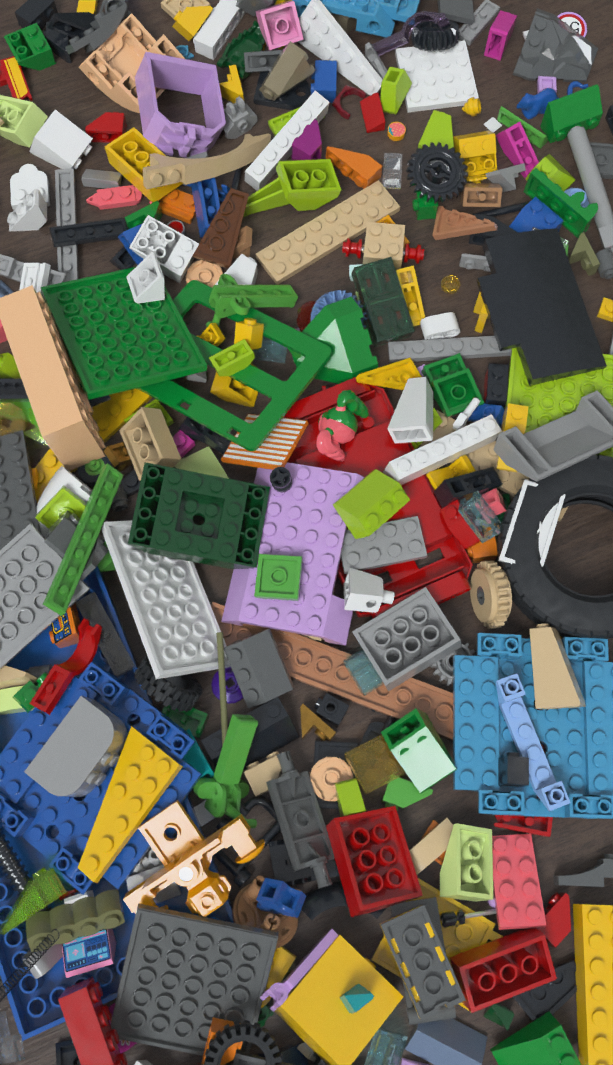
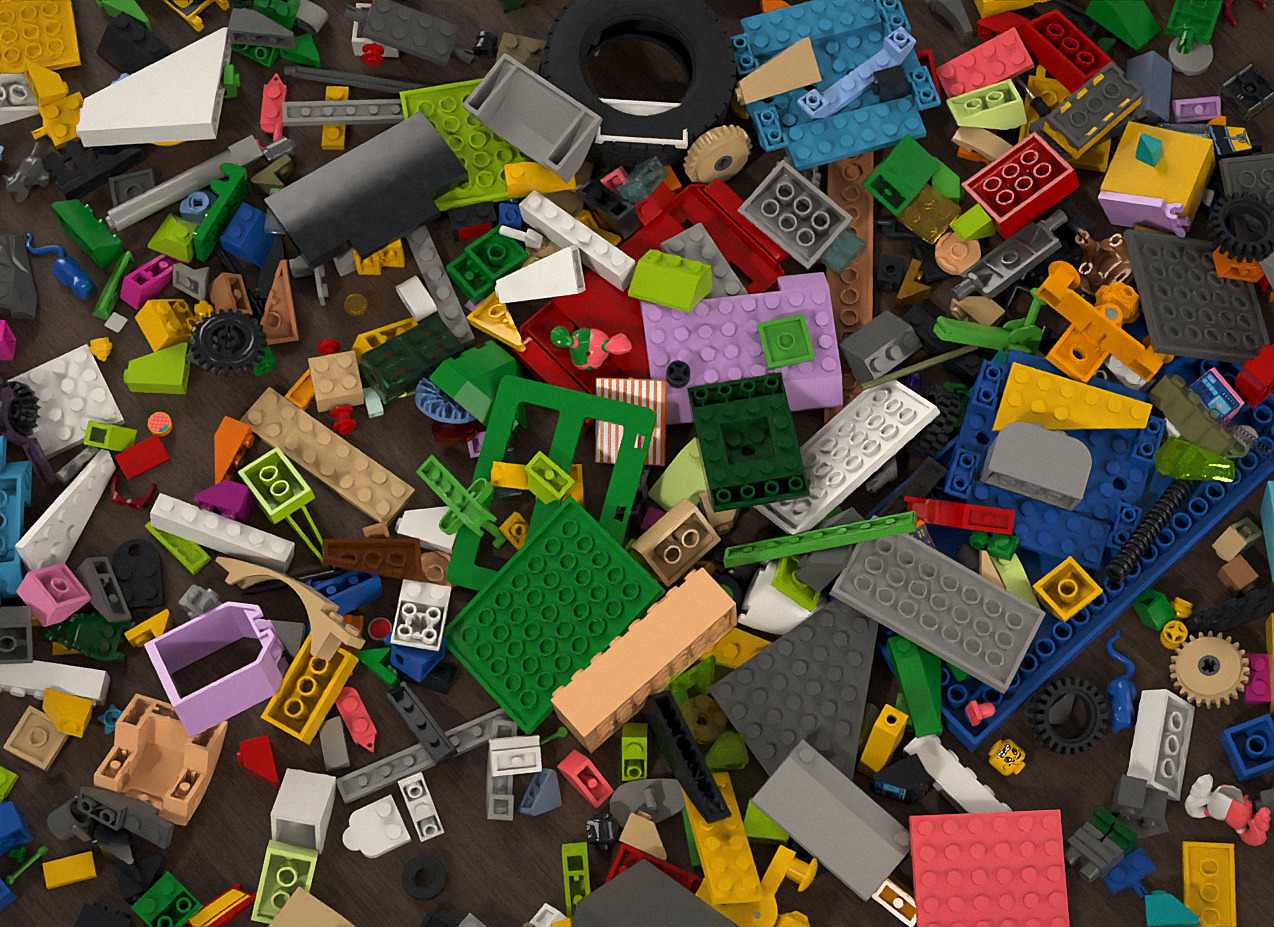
camera: 105 degrees left, 5 degrees down
(147, 280) = (474, 614): white slope -> none
(280, 898) = (1093, 244): blue brick -> none
(287, 72) = (130, 562): dark tan slope -> none
(325, 79) = (112, 525): blue brick -> none
(365, 592) = (764, 266): white torso -> none
(392, 170) = (212, 413): clear slope -> none
(546, 82) = (42, 276): lavender tile -> none

